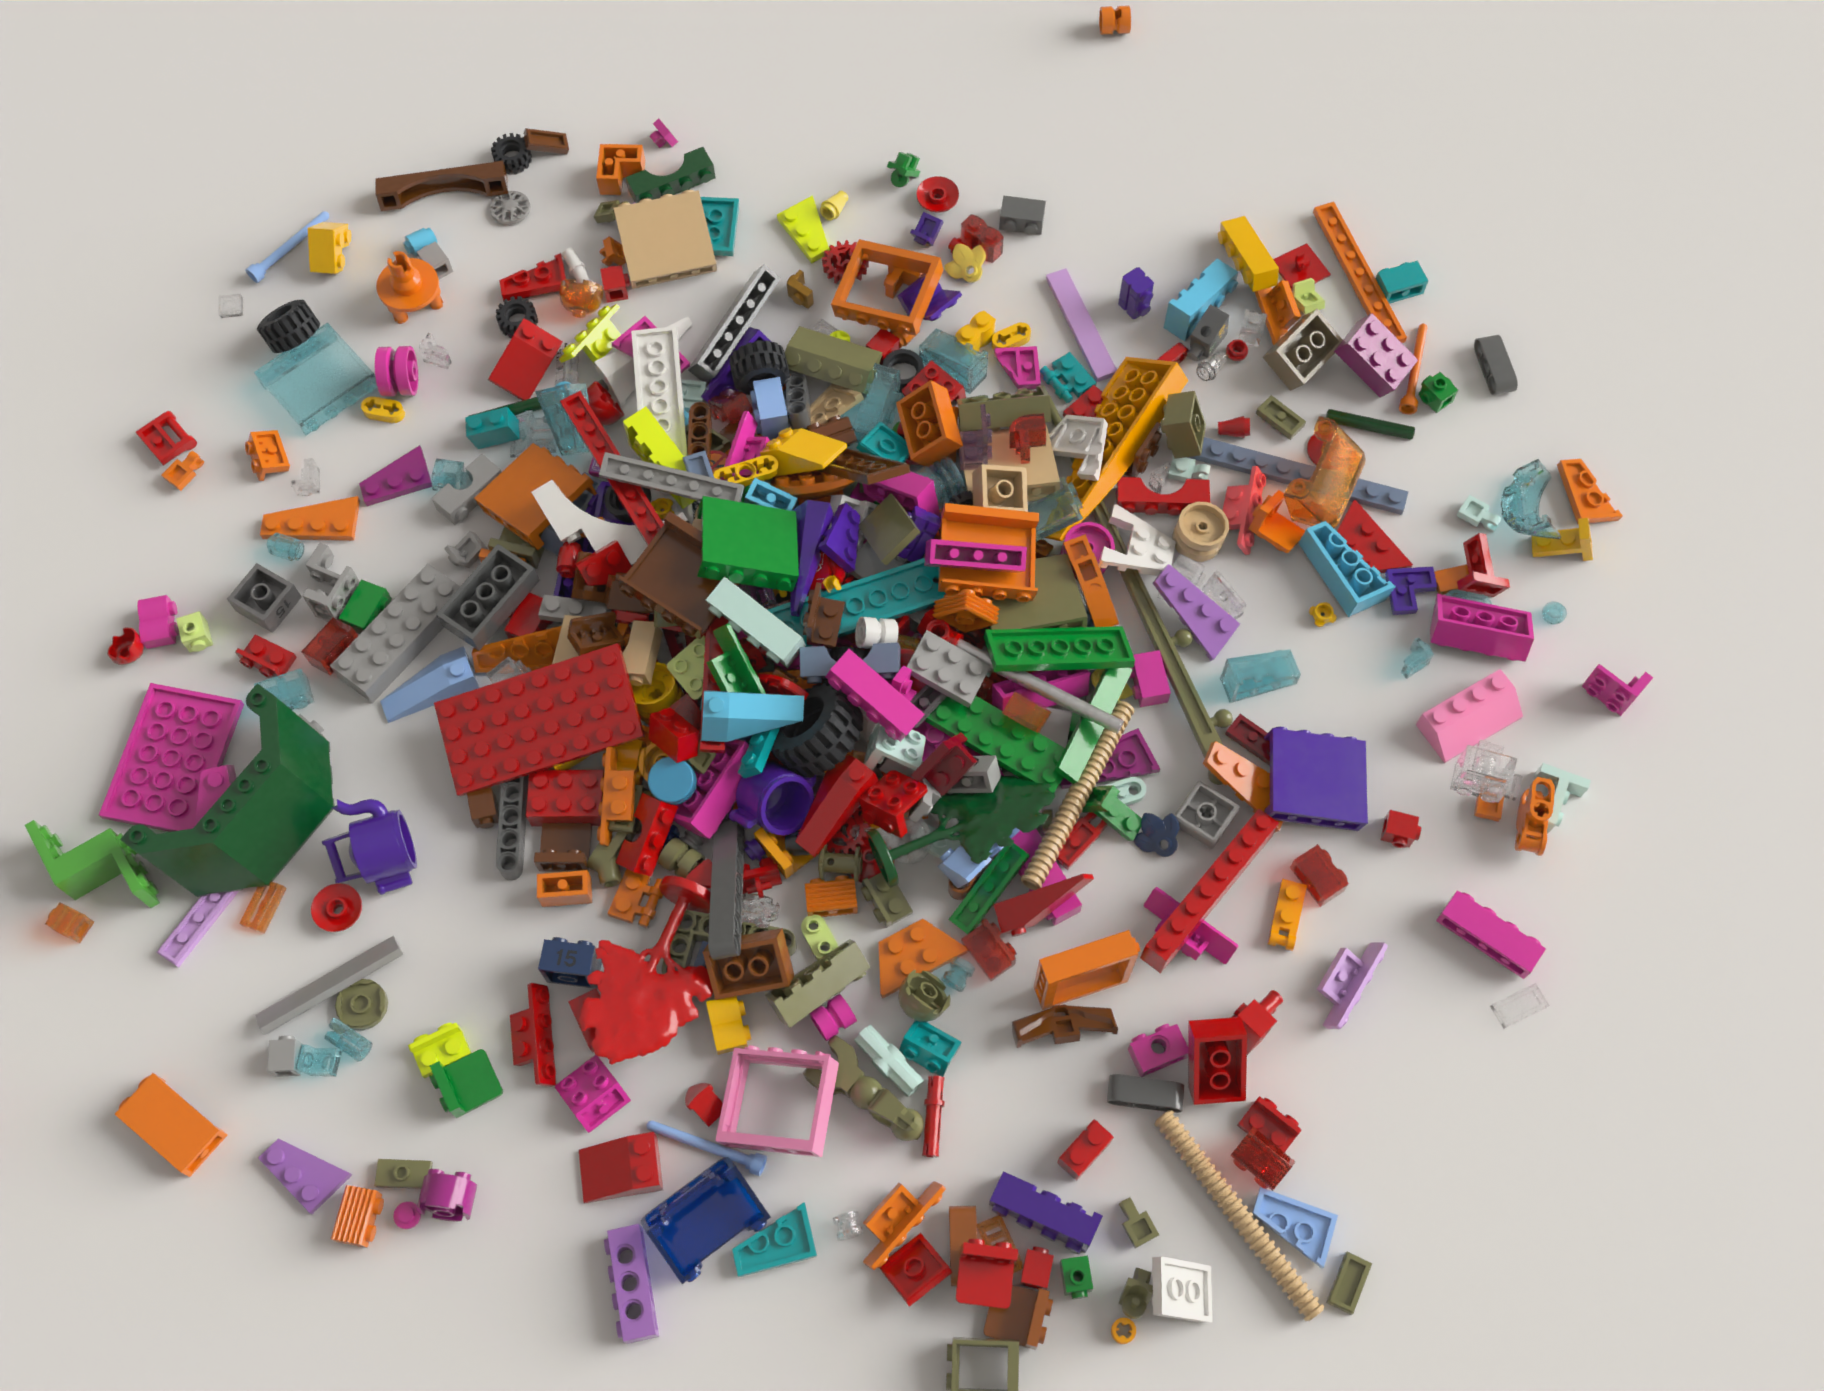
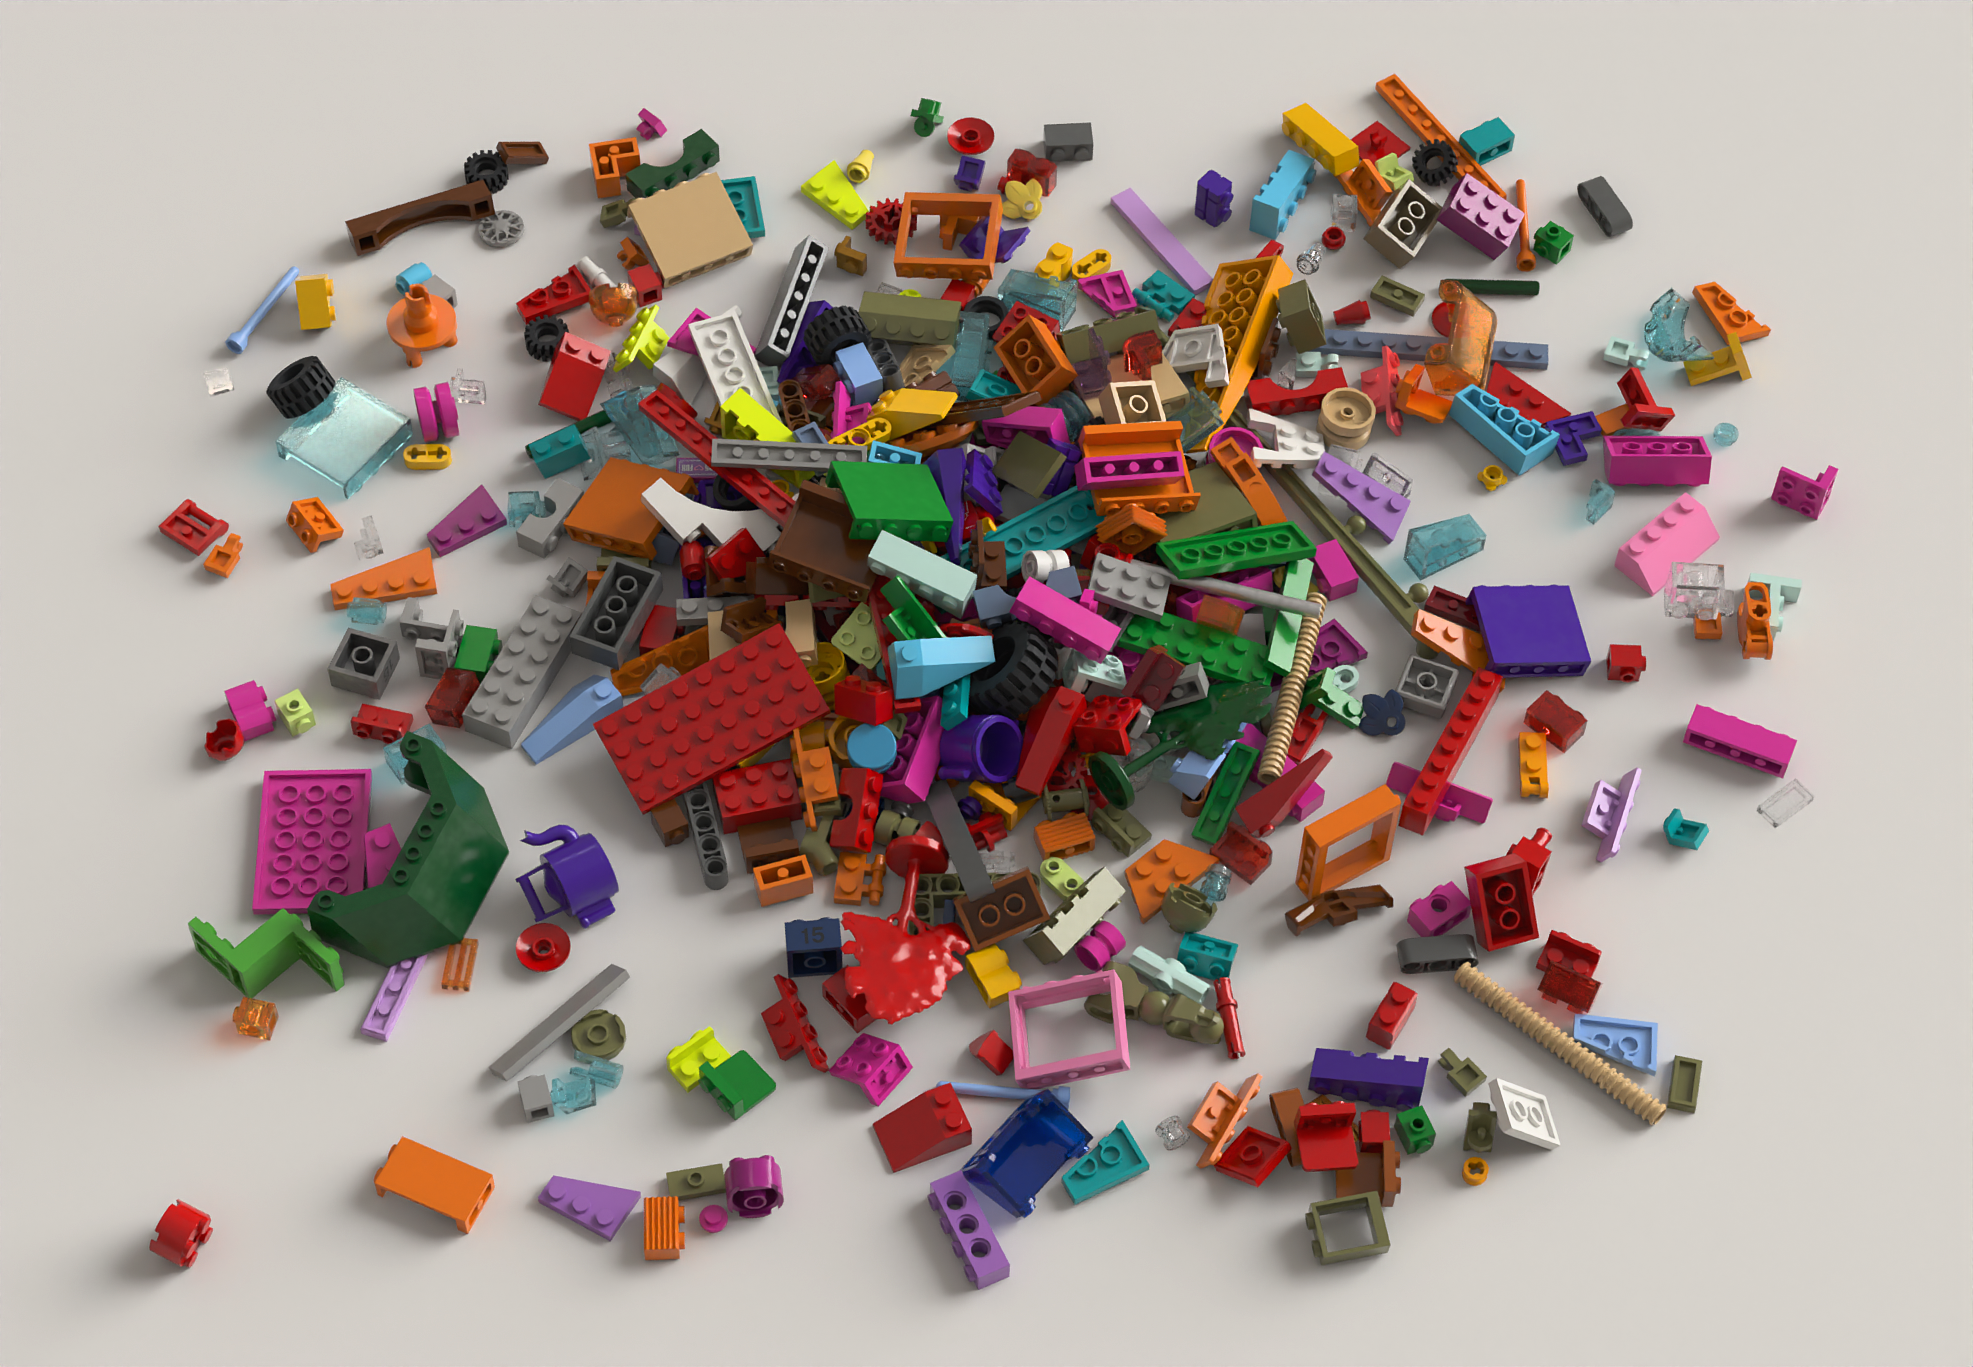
camera: 15 degrees left, 10 degrees down
(1208, 333) = (1300, 225): dark grey torso -> none
(1355, 303) = (1430, 151): none -> black tyre
(1414, 1017) = (1684, 832): none -> teal bracket

